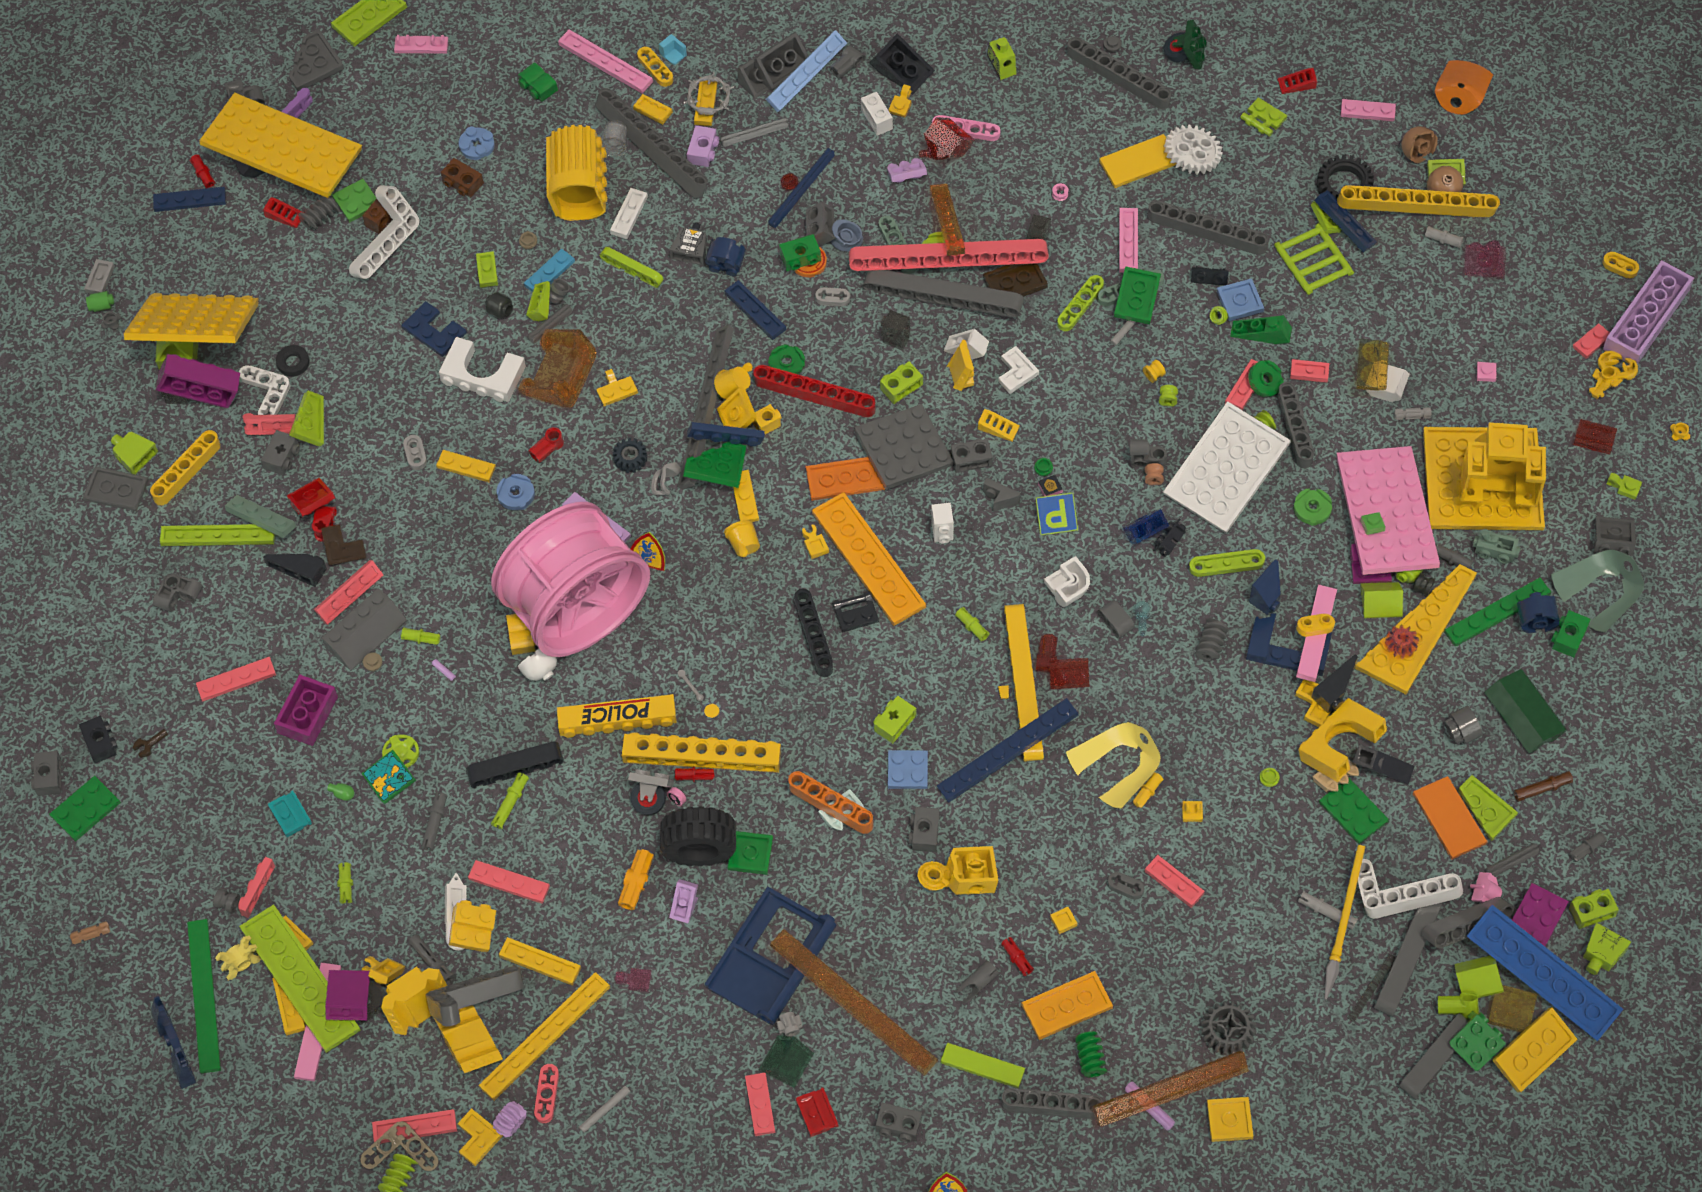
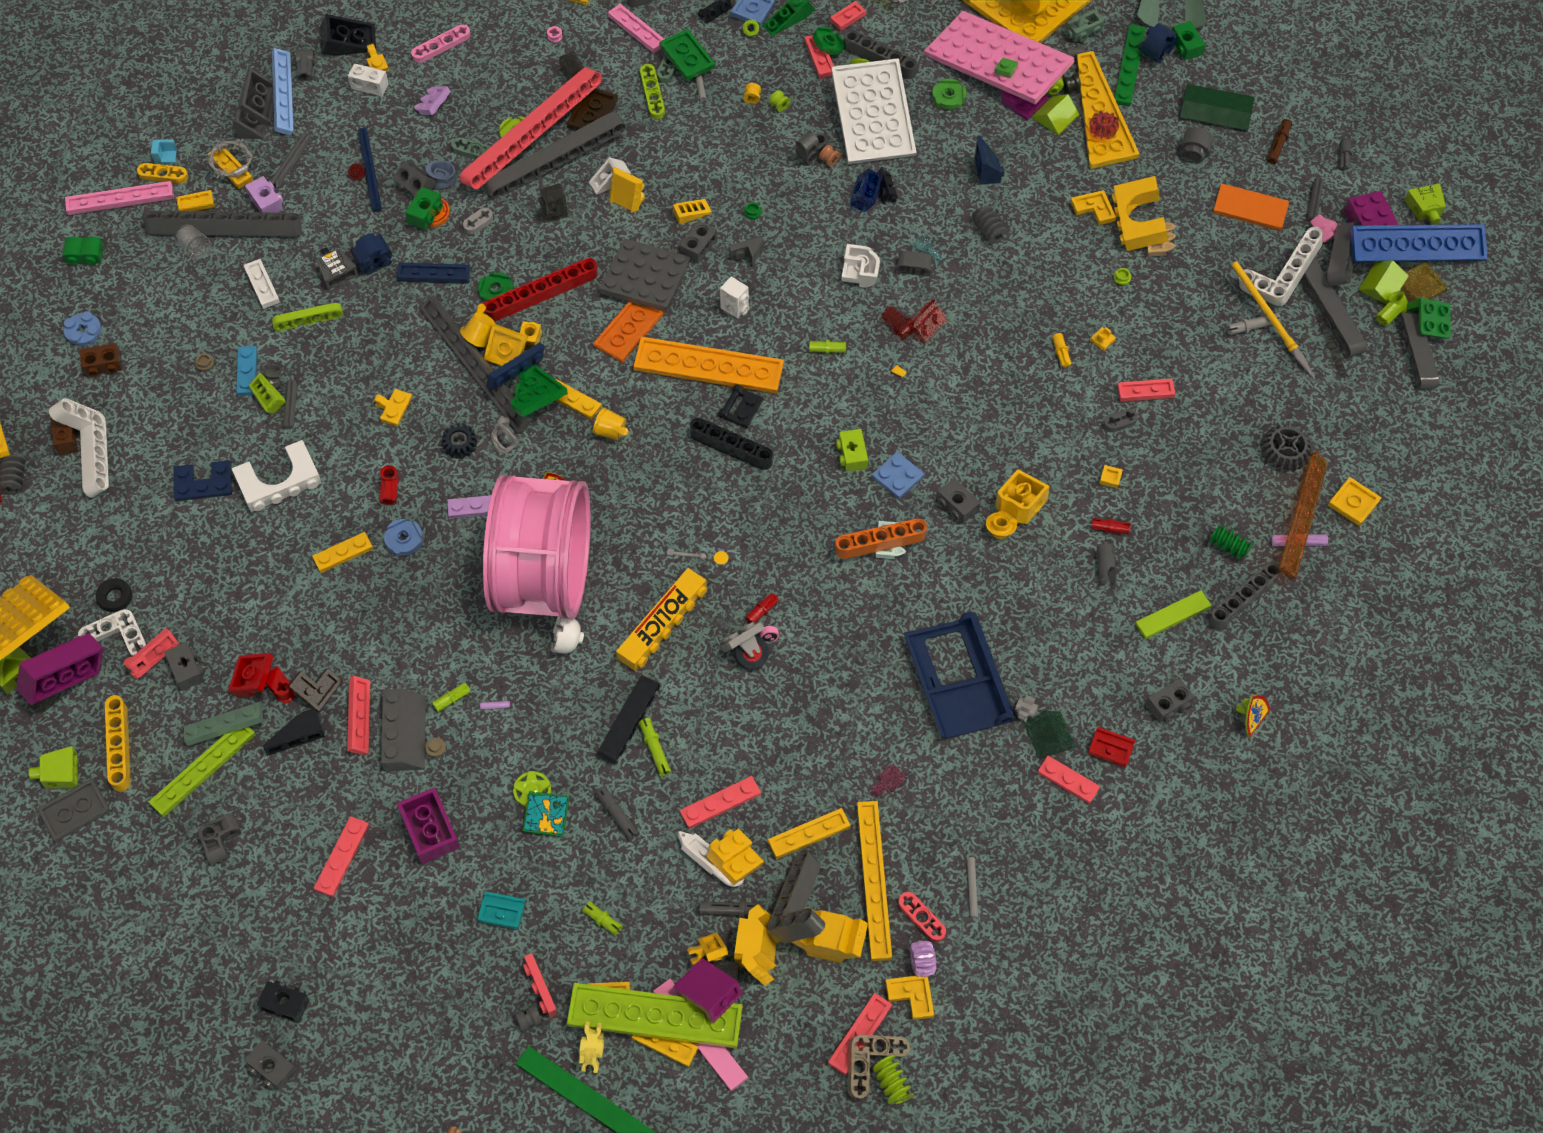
camera: 50 degrees left, 0 degrees up
(84, 808) = (331, 1062): green plate -> none
(149, 743) = (327, 966): dark brown bar -> none
(310, 419) = (180, 622): lime wing -> none
(341, 791) = (522, 857): bright green cylinder -> none
(354, 199) = (31, 442): bright green plate -> none
(415, 453) = (293, 576): light grey plate -> none
(487, 269) = (196, 406): lime plate -> none
(499, 305) = (237, 422): pearl dark grey head -> none
(519, 636) = (525, 628): yellow brick -> none
(563, 367) = (335, 425): clear orange windscreen -> none
(576, 173) = (195, 282): yellow piece -> none
(635, 879) = (808, 714): light orange piece -> none
(684, 901) = (859, 696): lavender slope -> none
(697, 836) = (826, 640): black tyre -> none
(709, 759) = (748, 598): yellow brick -> none
(751, 853) = (863, 623): green plate -> none
(815, 544) = (661, 387): yellow plate -> none
(854, 1002) = (1050, 652): clear orange plate -> none
(903, 385) = (594, 235): lime brick -> none
(946, 140) = (441, 59): clear red piece -> none
(947, 219) = (504, 105): clear orange plate -> none
(1007, 750) = (951, 402): dark blue plate -> none
(1021, 370) = (664, 162): white plate -> none
(1022, 673) = (906, 352): yellow beam -> none
(1050, 486) = (771, 219): black tile -> none
(1056, 513) = (798, 231): blue piece -> none
(1067, 1005) = (1177, 527): light orange plate -> none
(1098, 746) = (1041, 329): light yellow piece -> none
(1227, 562) = (939, 171): lime plate -> none
(1263, 652) = (1060, 186): dark blue wedge -> none
(1314, 645) = (1047, 165): bright pink tile -> none
(1316, 625) = (1043, 159): yellow plate -> none
(1331, 691) = (1100, 184): black slope -> none
(1354, 811) = (1195, 253): green plate -> none
(1383, 764) = (1178, 208): black slope -> none
(1487, 807) = (1264, 181): lime wing -> none
(1534, 1049) = (1464, 294): yellow plate -> none
(1595, 911) = (1393, 184): lime brick -> none

